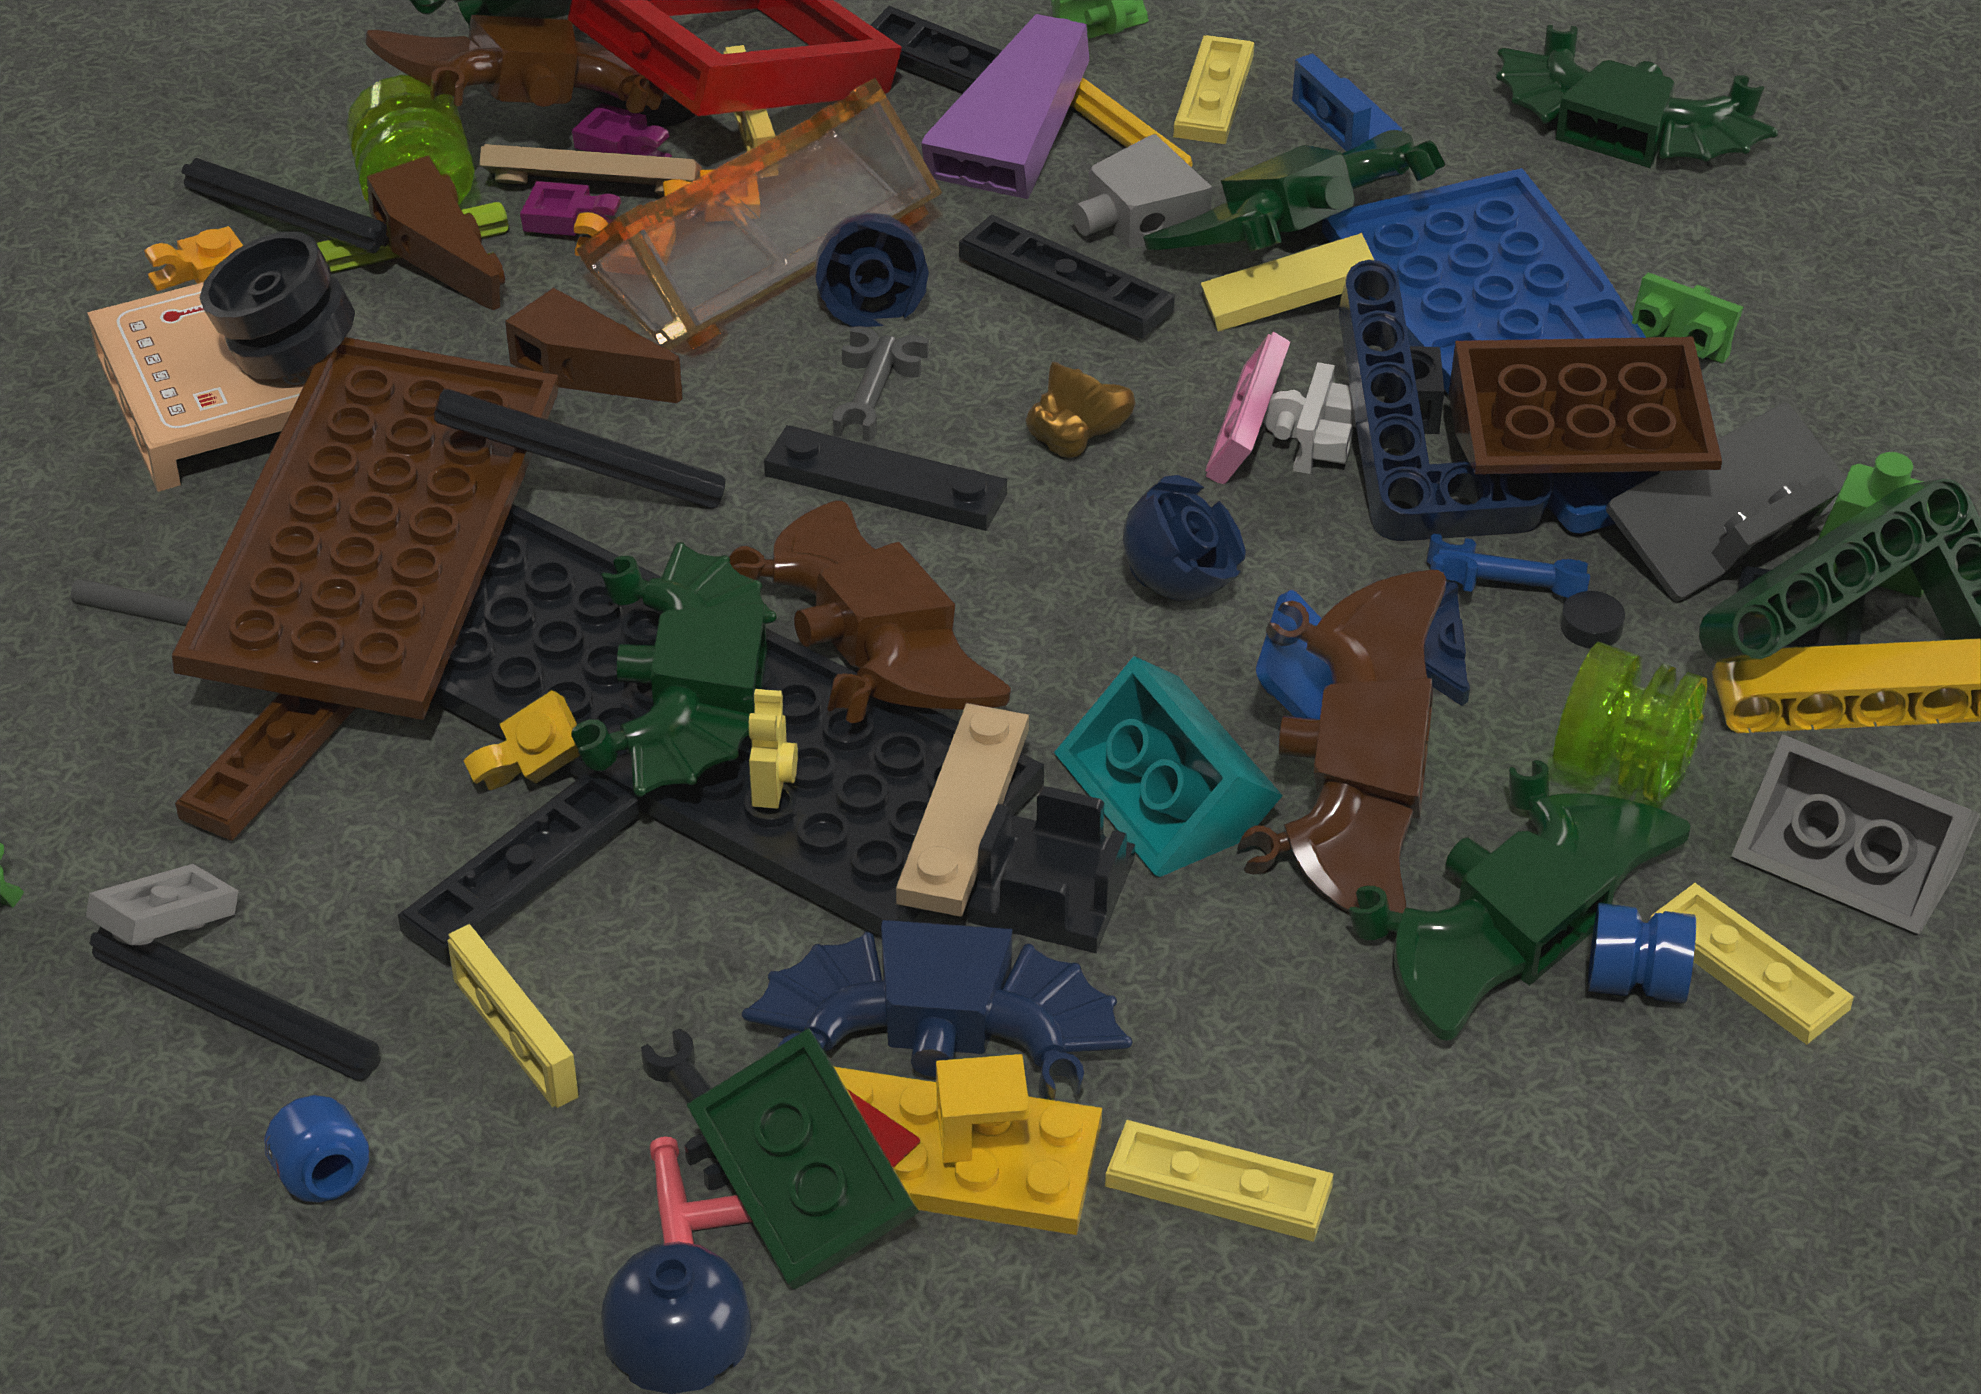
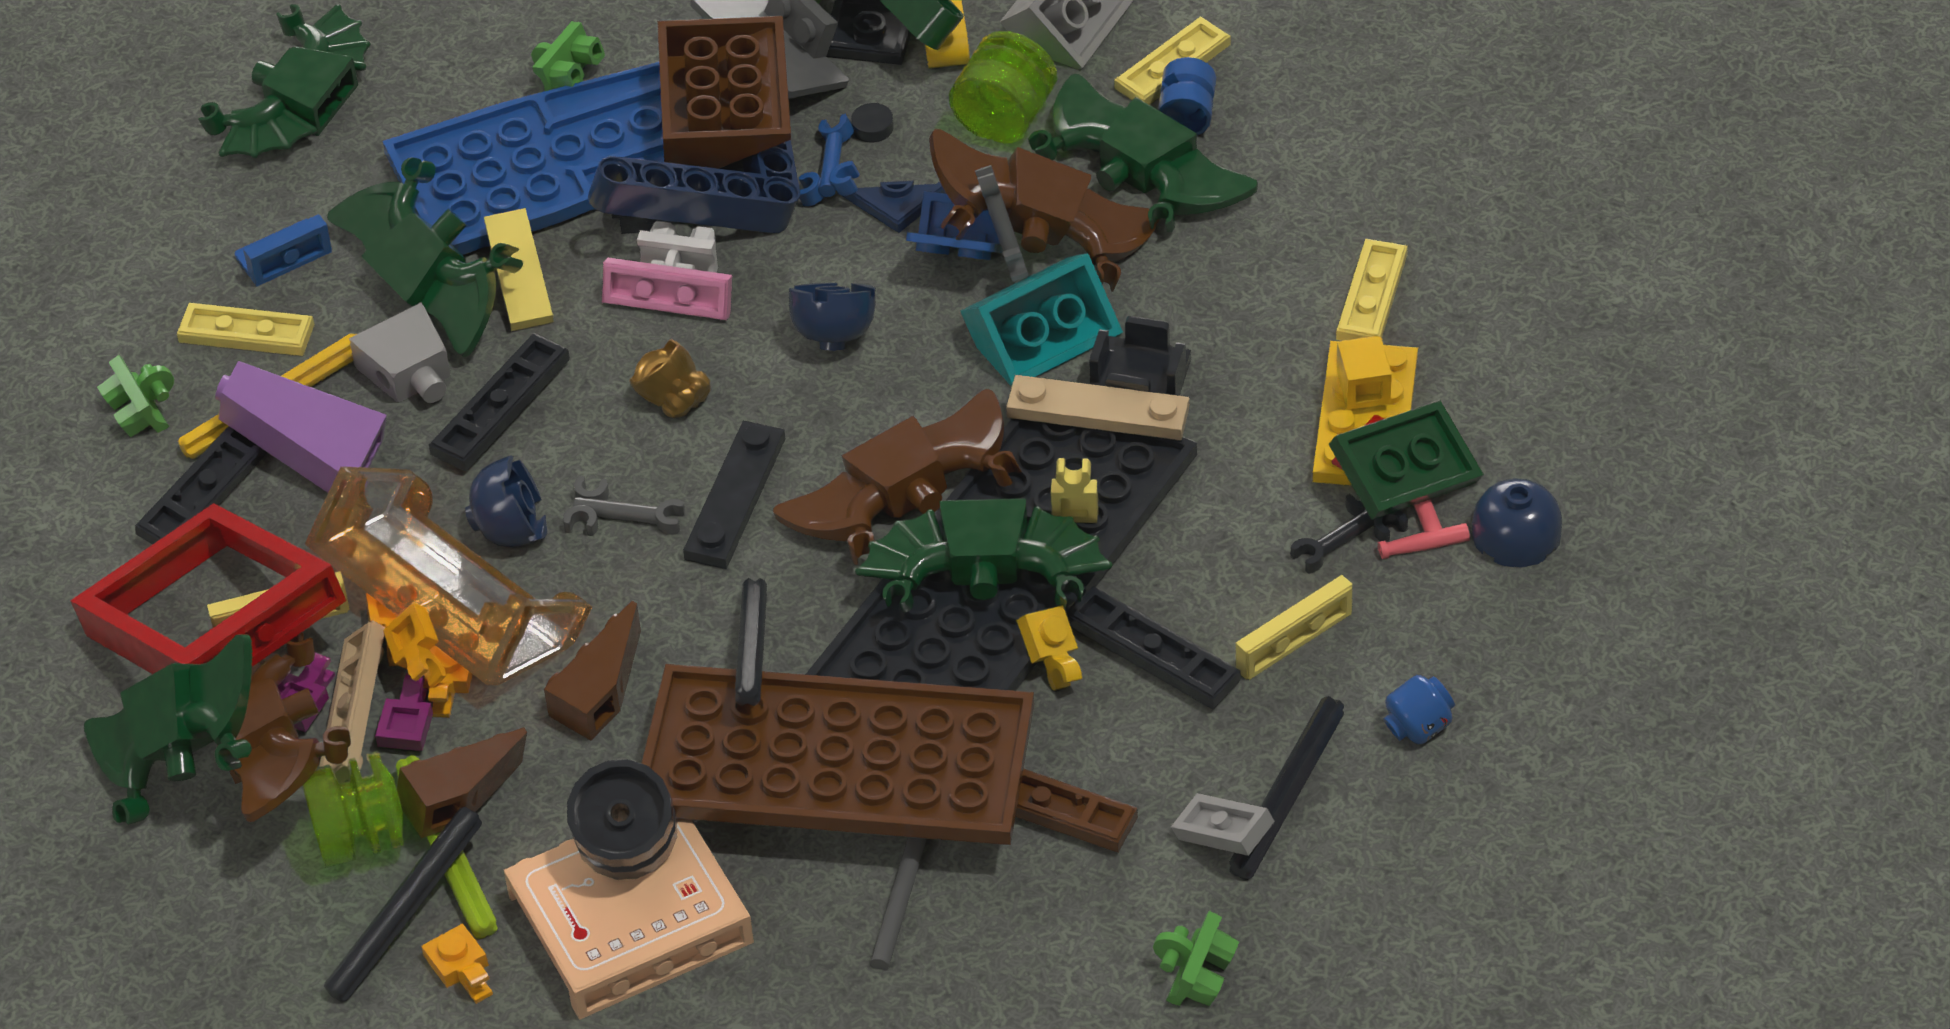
camera: 90 degrees left, 5 degrees up
(648, 182) = (410, 641): none -> light orange plate
(944, 996) = (1250, 419): dark blue torso -> none
(1304, 685) = (1001, 223): none -> dark grey bar

